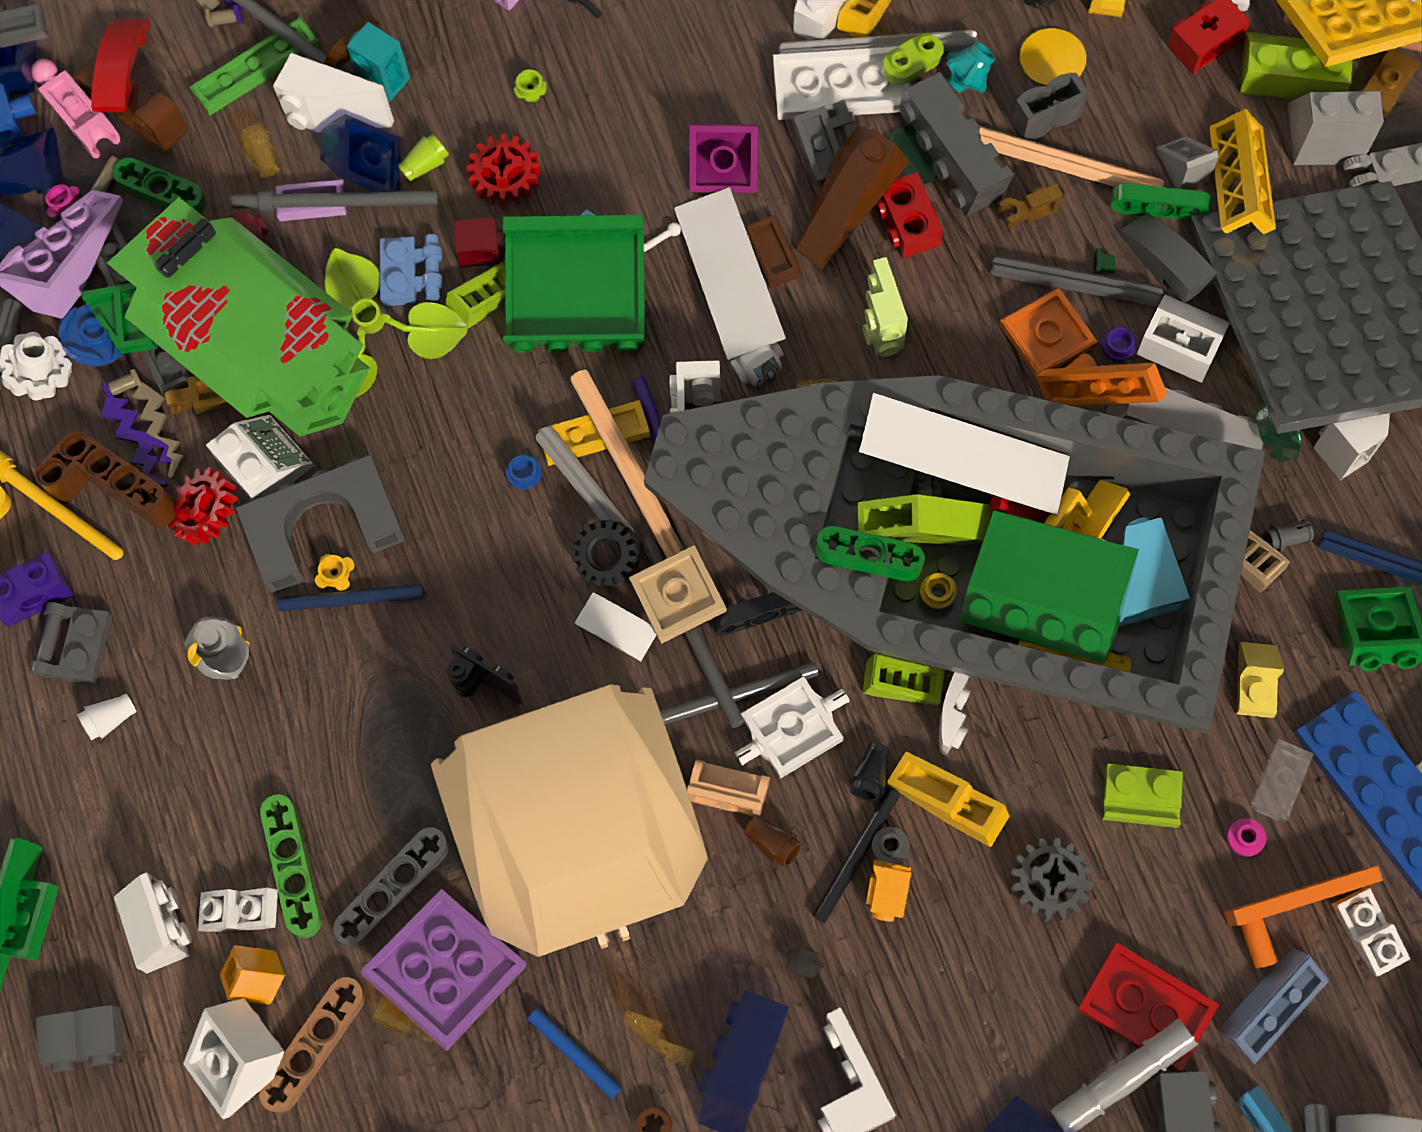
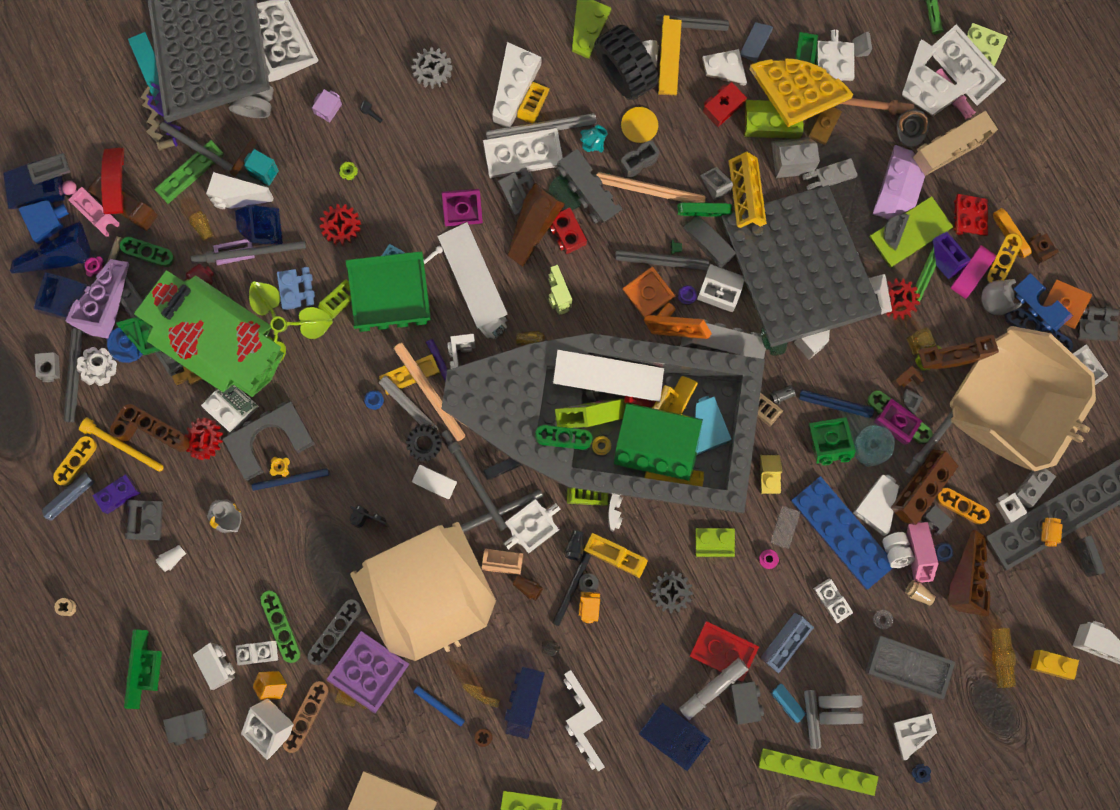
camera: 15 degrees left, 10 degrees up
(147, 440) = (165, 402): piece -> none
(423, 157) = (294, 220): lime cone -> none
(478, 242) = (332, 269): dark red brick -> none
(678, 594) = (465, 462): tan plate -> none
(772, 251) = (494, 258): reddish brown tile -> none
(914, 56) = (562, 136): lime plate -> none
(1037, 204) = (638, 216): pearl gold plate -> none
(1251, 915) = (772, 599): orange piece -> none

